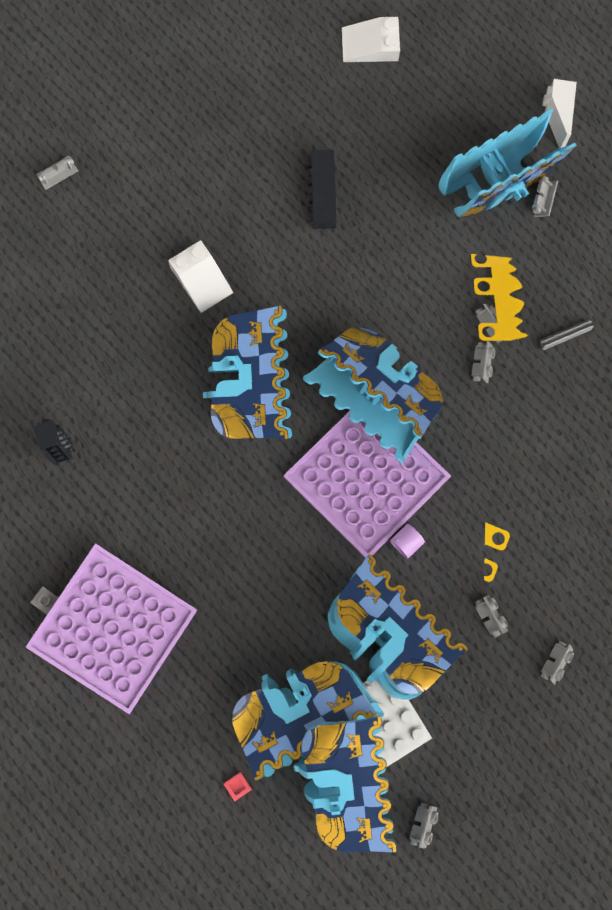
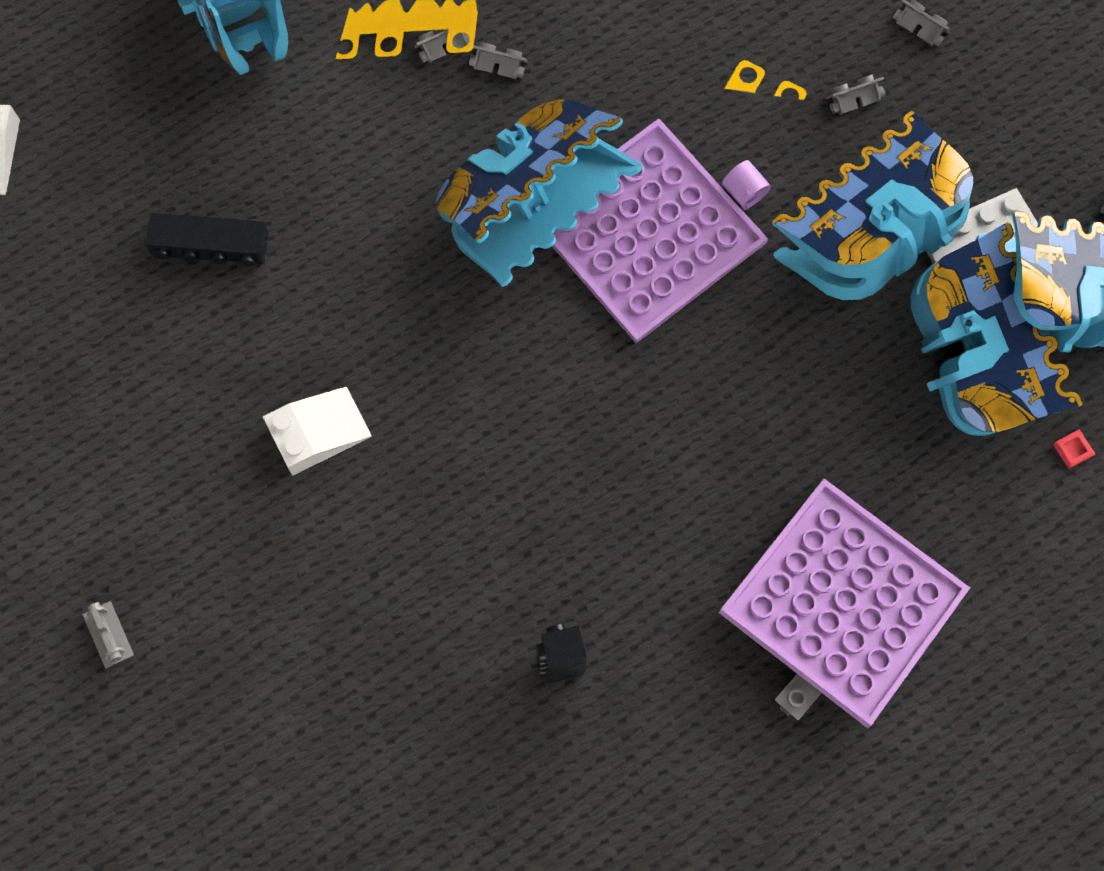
camera: 80 degrees left, 5 degrees down
(253, 403) = (529, 362): animal -> none

